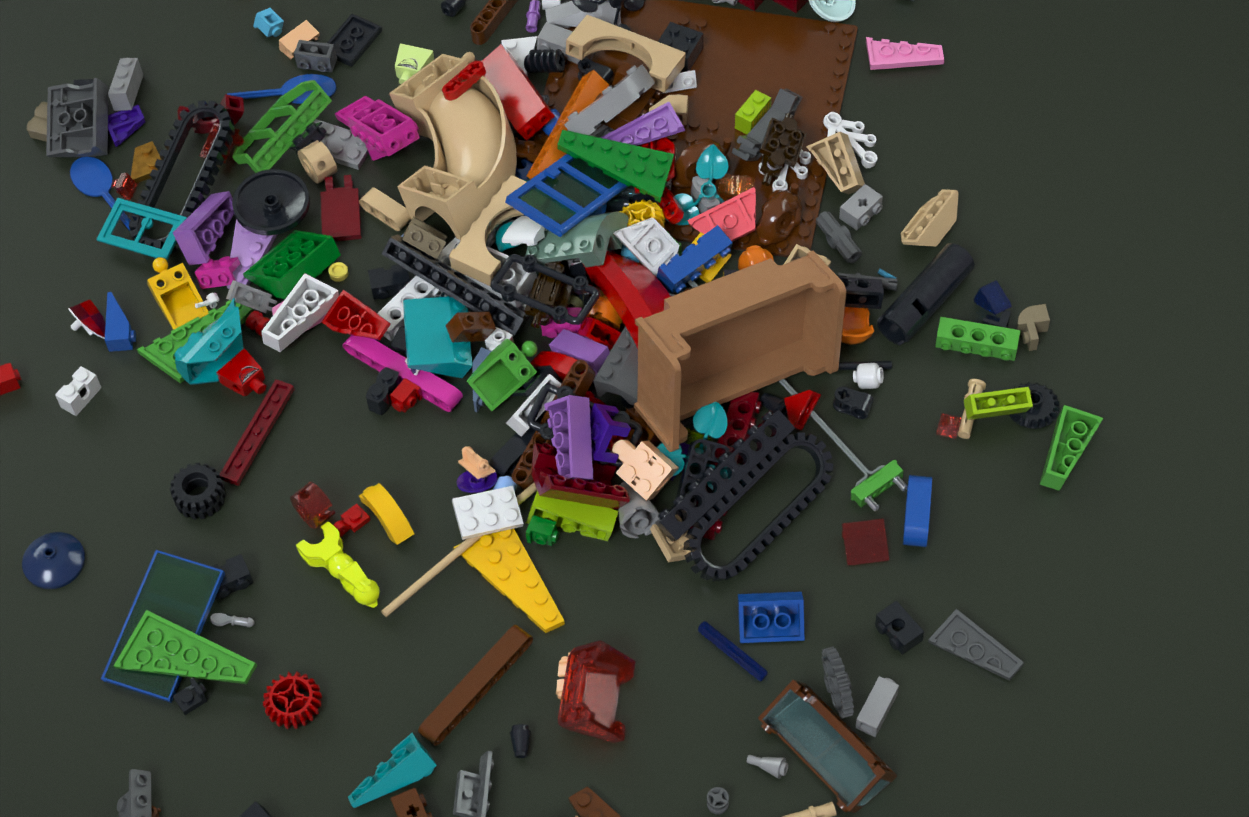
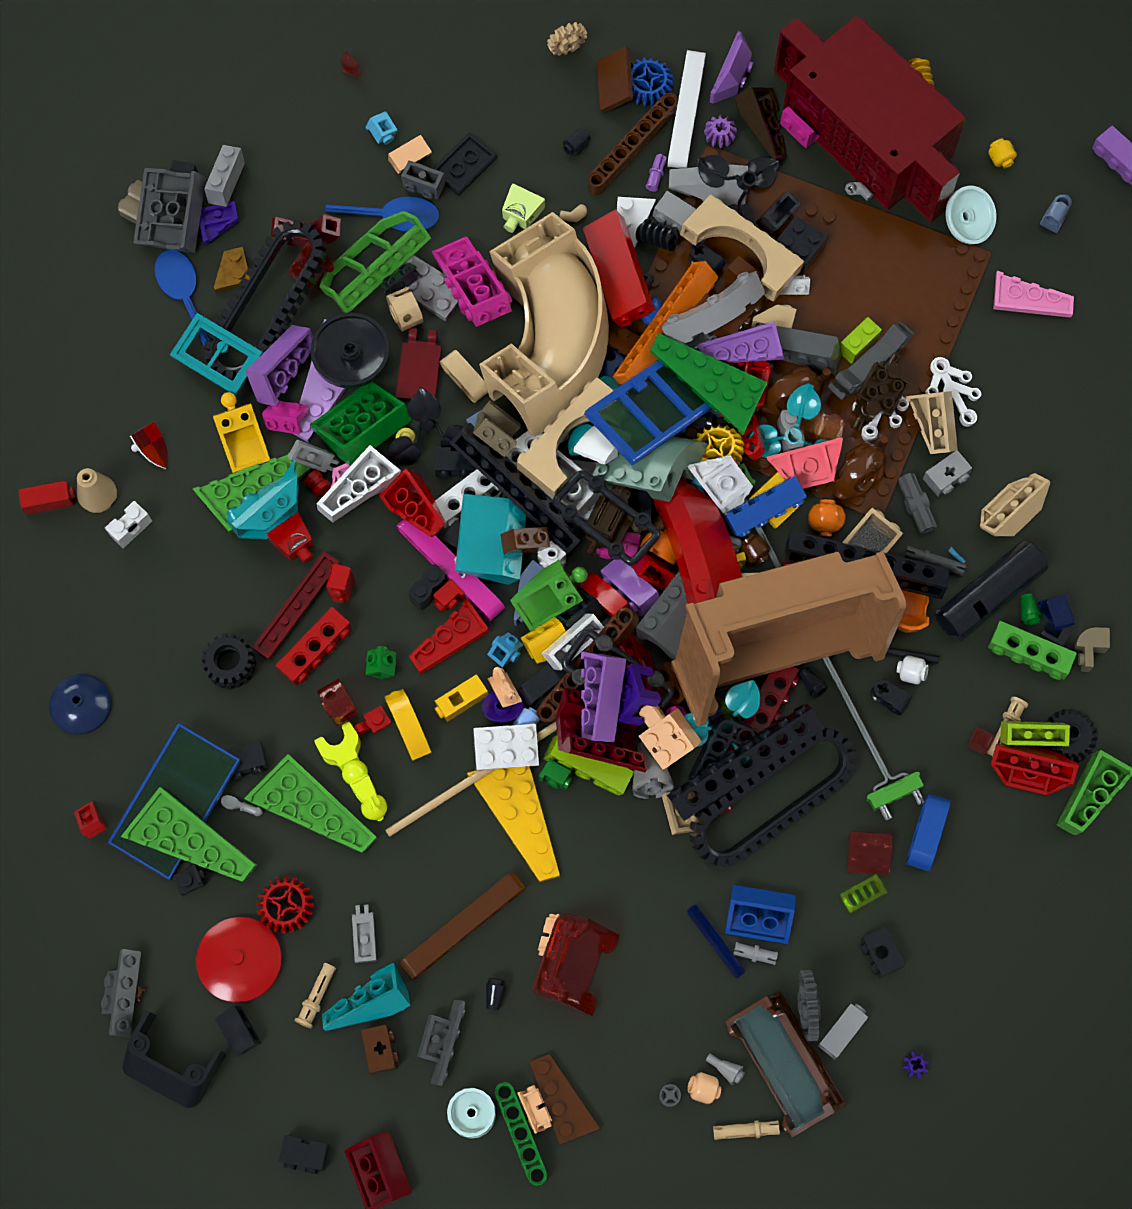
camera: 10 degrees right, 15 degrees up
(39, 366) = (95, 491): none -> tan cone
(80, 662) = (89, 820): none -> red slope
(117, 330) = (177, 464): blue slope -> none
(124, 185) = (206, 295): clear red tile -> none
(211, 301) = (275, 447): white hand -> none
(253, 762) = (239, 960): none -> red dish
(282, 452) = (316, 635): none -> red brick
(293, 602) = (303, 800): none -> bright green wing
(297, 401) = (340, 583): none -> red brick
(337, 789) = (309, 1005): none -> tan pin
(348, 230) = (424, 409): none -> black plant
(349, 464) = (381, 662): none -> green brick
(377, 714) = (364, 935): none -> light grey hinge
(418, 428) = (455, 634): none -> red wing
(434, 482) = (460, 698): none -> yellow brick
(470, 73) = (572, 246): red beam -> none
(470, 429) = (505, 649): none -> dark azure brick
(502, 413) = (542, 637): none -> yellow brick
(654, 21) = (778, 213): none -> black brick
(707, 123) = (810, 349): none -> dark grey wedge
(750, 786) = (704, 1088): none -> light nougat head
(774, 654) = (755, 953): none -> light grey pin
(800, 407) = (835, 694): red slope -> none
(879, 580) = (879, 884): none -> clear neon green slope
(959, 717) = (909, 1066): none -> dark purple gear
(967, 307) = (1029, 610): none -> green cone
(973, 644) = (948, 982): dark grey wing -> none
(1004, 438) = (1033, 768): none -> red wedge

